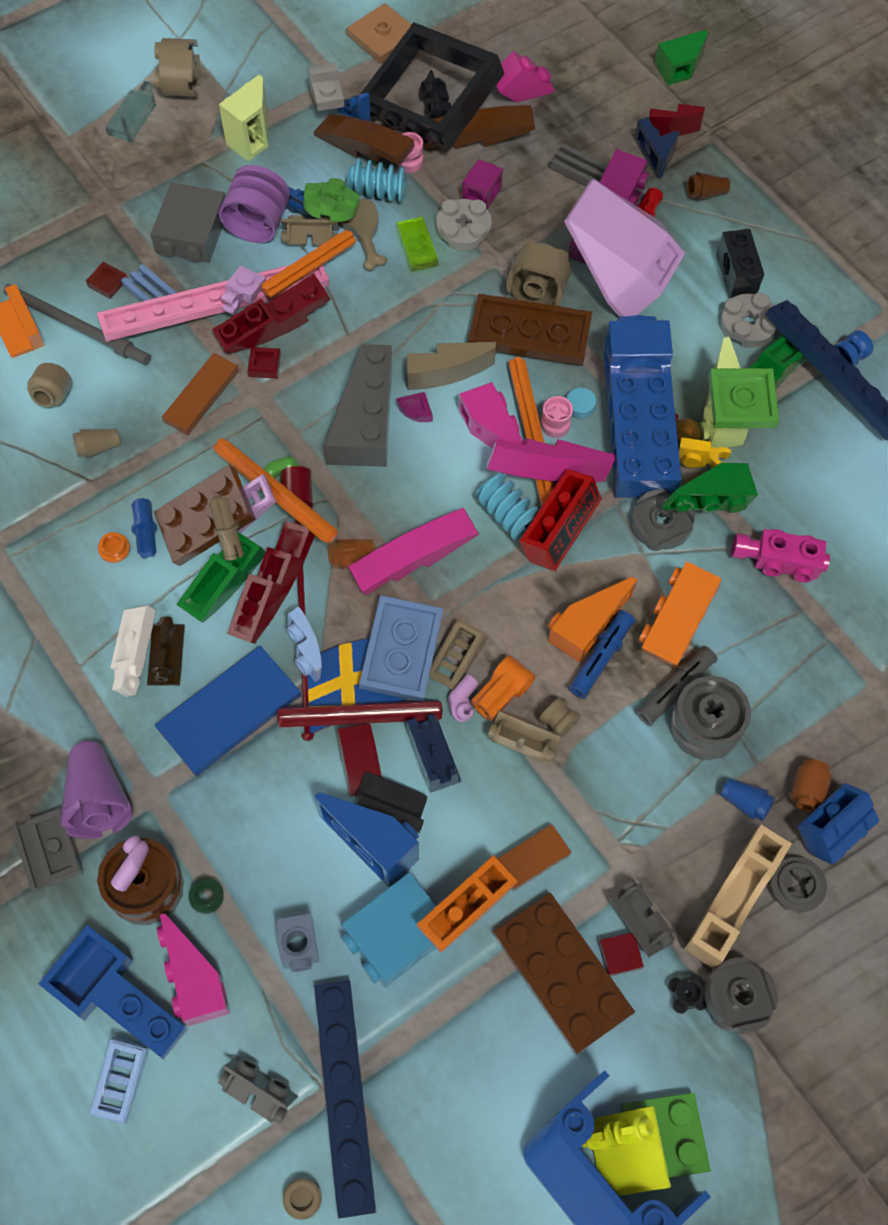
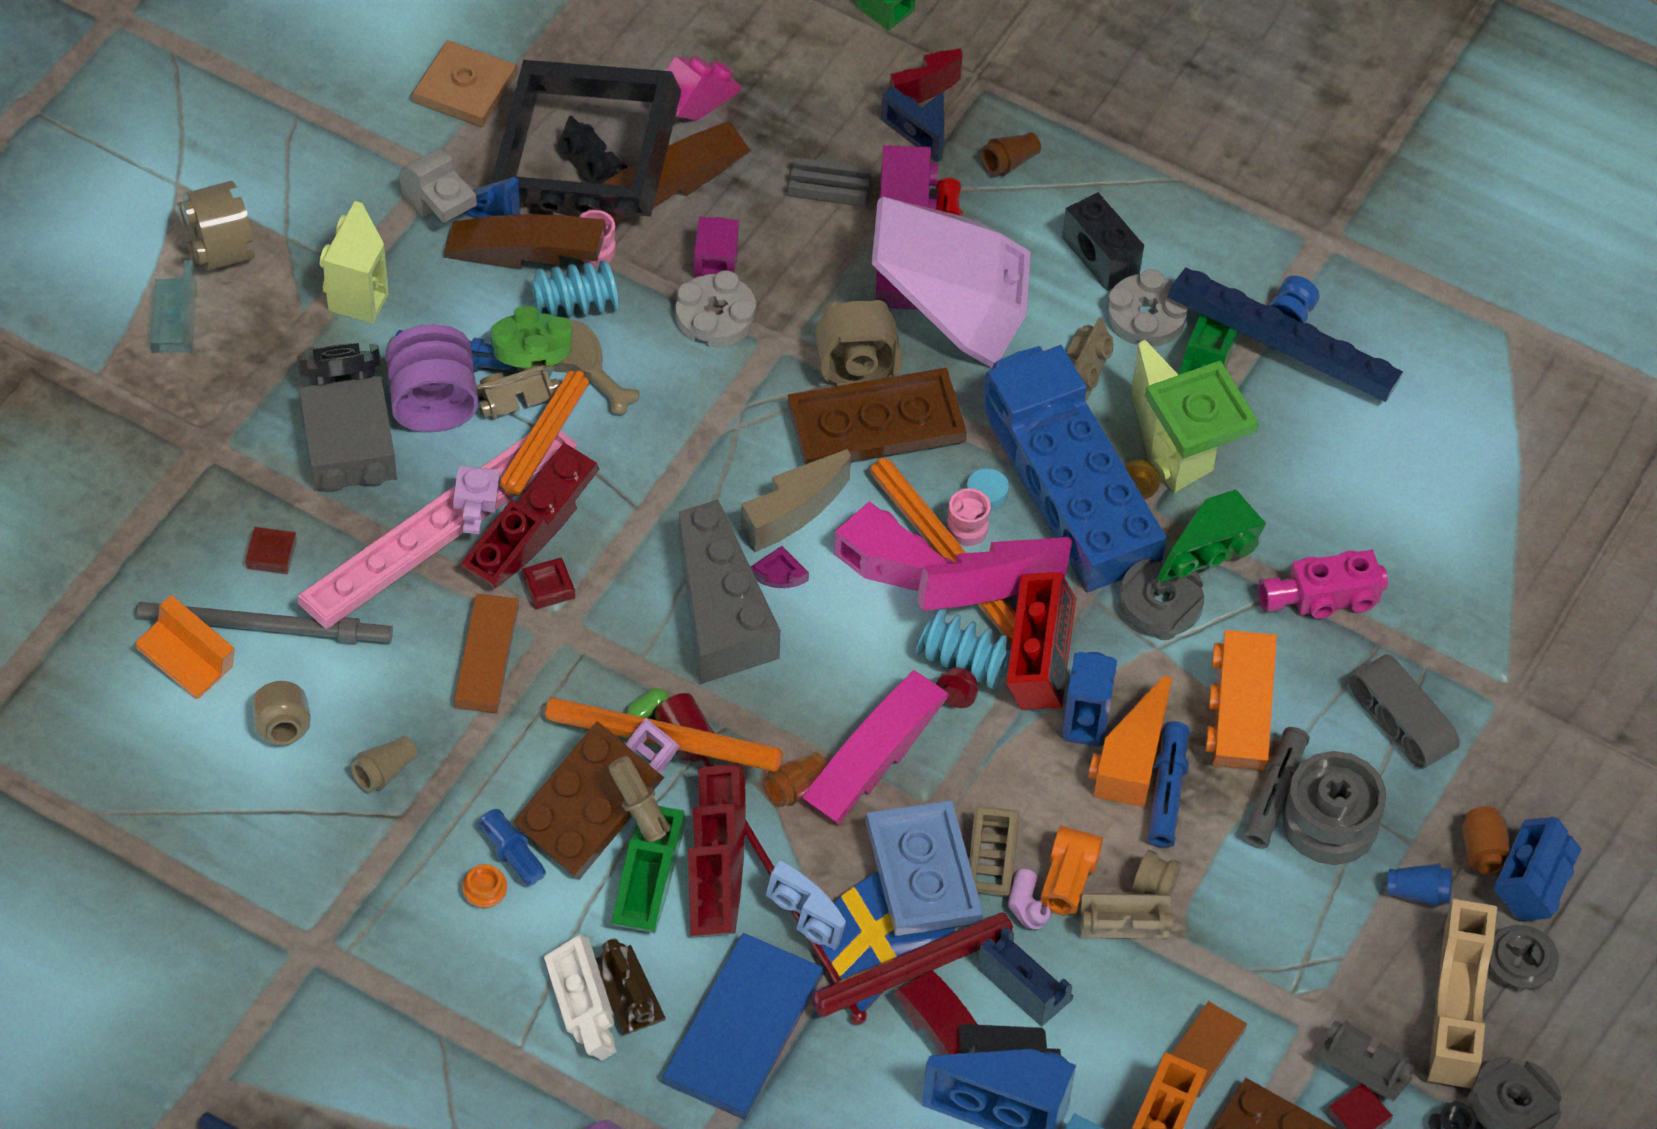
camera: 25 degrees left, 10 degrees down
(138, 277) = (336, 532): medium blue tile -> none
(215, 177) = (337, 361): none -> black plate
(417, 244) = (670, 357): clear neon green plate -> none
(490, 530) = (960, 686): none -> dark red plate
(572, 572) = (1089, 698): none -> blue brick
(692, 339) = (1091, 349): none -> dark tan hinge
(697, 453) = (1169, 497): yellow plate -> none
(795, 666) = (1404, 711): none -> dark grey beam

